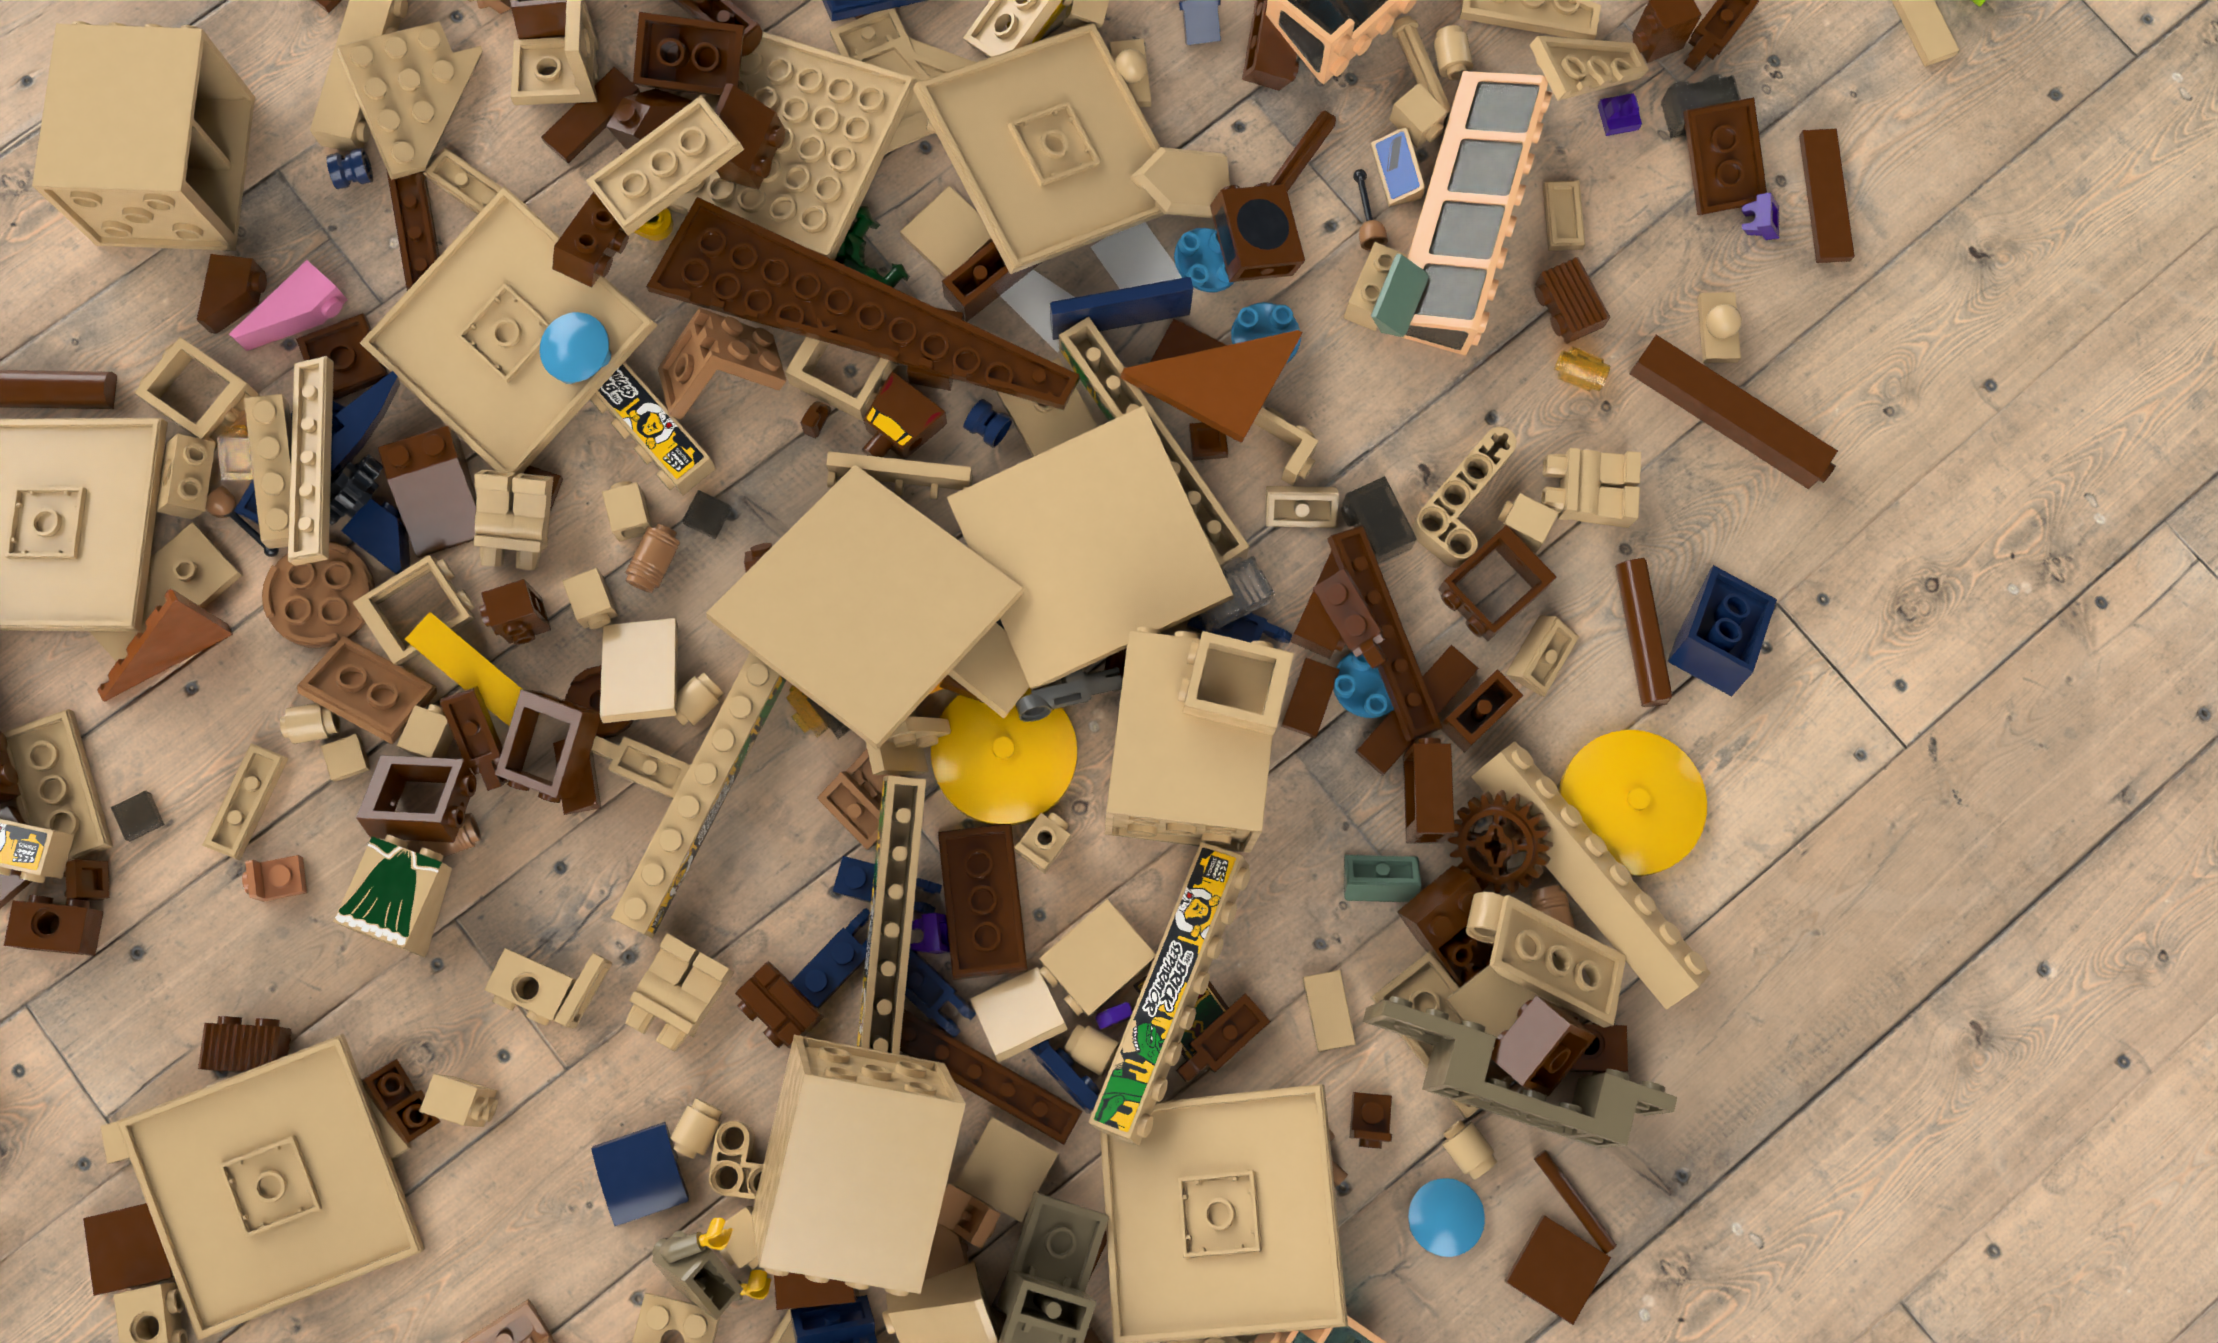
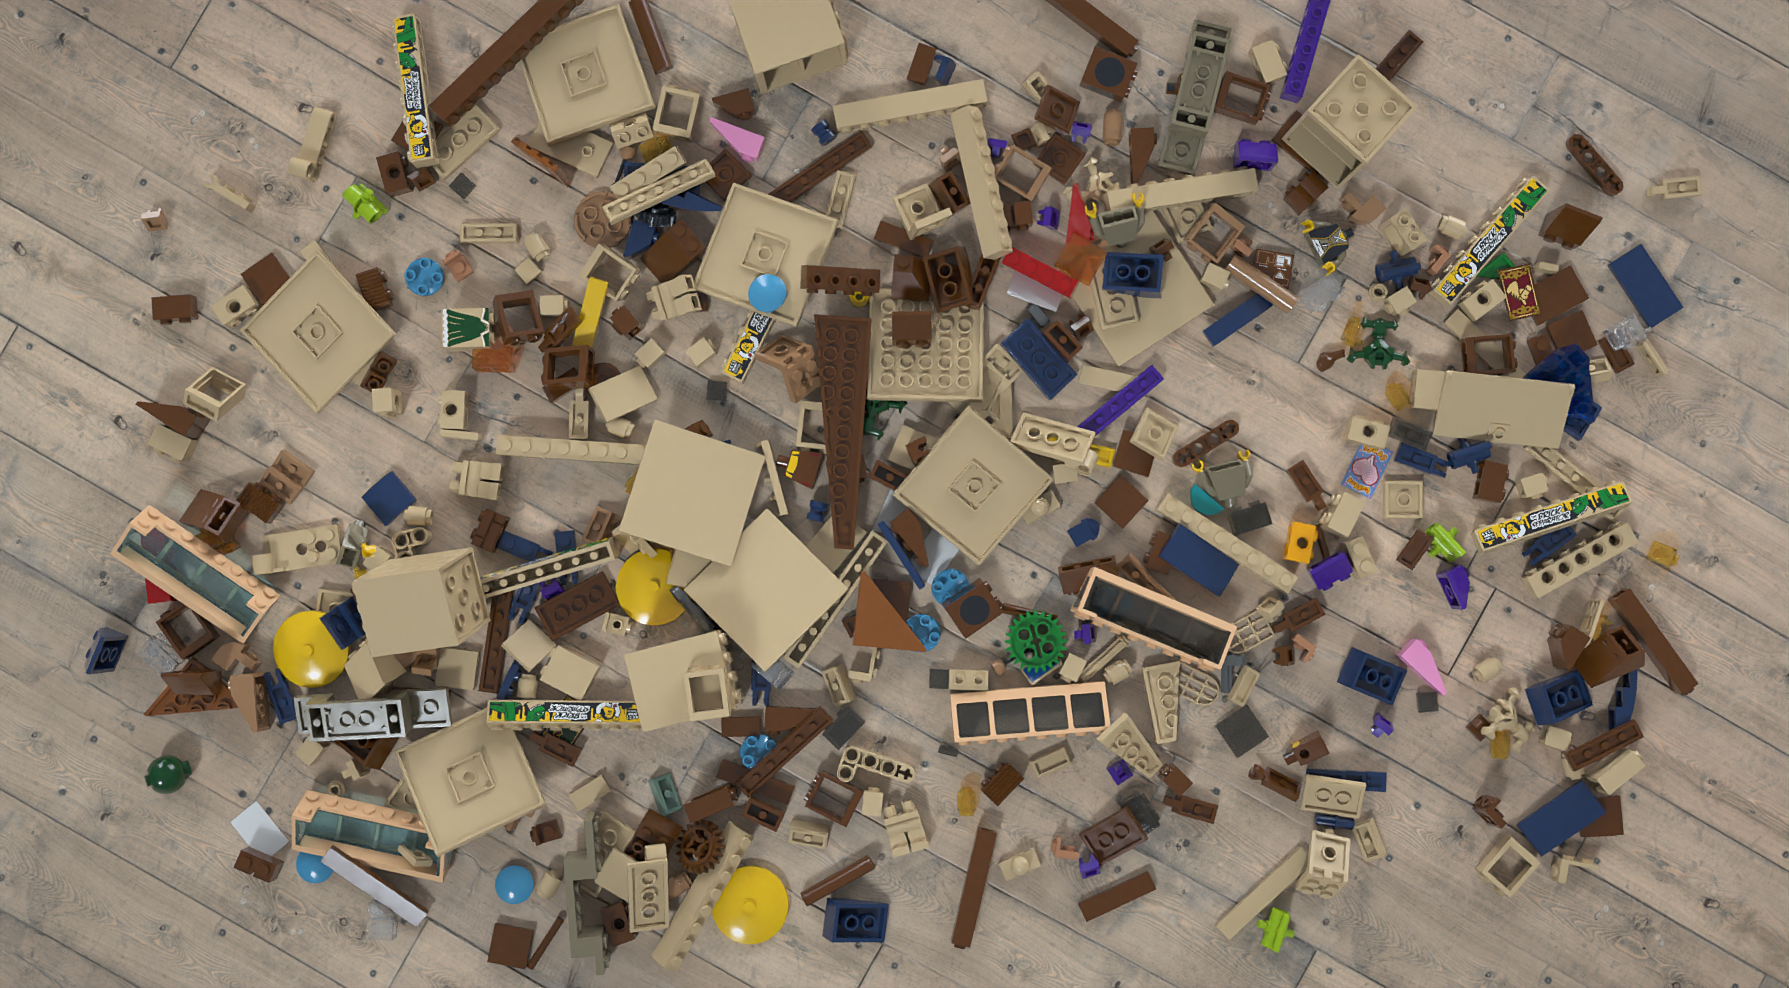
camera: 75 degrees right, 10 degrees up
(77, 1004) = (364, 203): none -> lime pin
(266, 948) = (424, 277): none -> dark azure dish
(366, 689) = (562, 266): medium nougat tile -> none
(408, 91) = (875, 144): tan wing -> none
(475, 878) = (492, 361): none -> clear orange bracket
(652, 558) = (682, 375): medium nougat head -> none
(664, 165) = (873, 299): tan tile -> none
(815, 419) = (787, 424): reddish brown tile -> none
(954, 212) = (916, 450): none -> reddish brown hinge
(1094, 270) = (910, 531): none -> reddish brown slope
(1114, 1015) = (547, 691): dark purple tile -> none
(1183, 180) = (987, 559): tan tile -> none
(1352, 617) = (782, 733): reddish brown hinge -> none
(1354, 338) = (938, 678): none -> clear smoke tile
(1355, 123) = (1053, 636): none -> green gear
(1370, 74) = (1086, 633): none -> dark purple tile
(1399, 297) = (961, 695): sand green slope -> none
(1483, 365) = (947, 750): none -> clear smoke tile
(1541, 1045) = (603, 901): brick -> none
(1716, 253) = (1066, 852): none -> nougat bracket

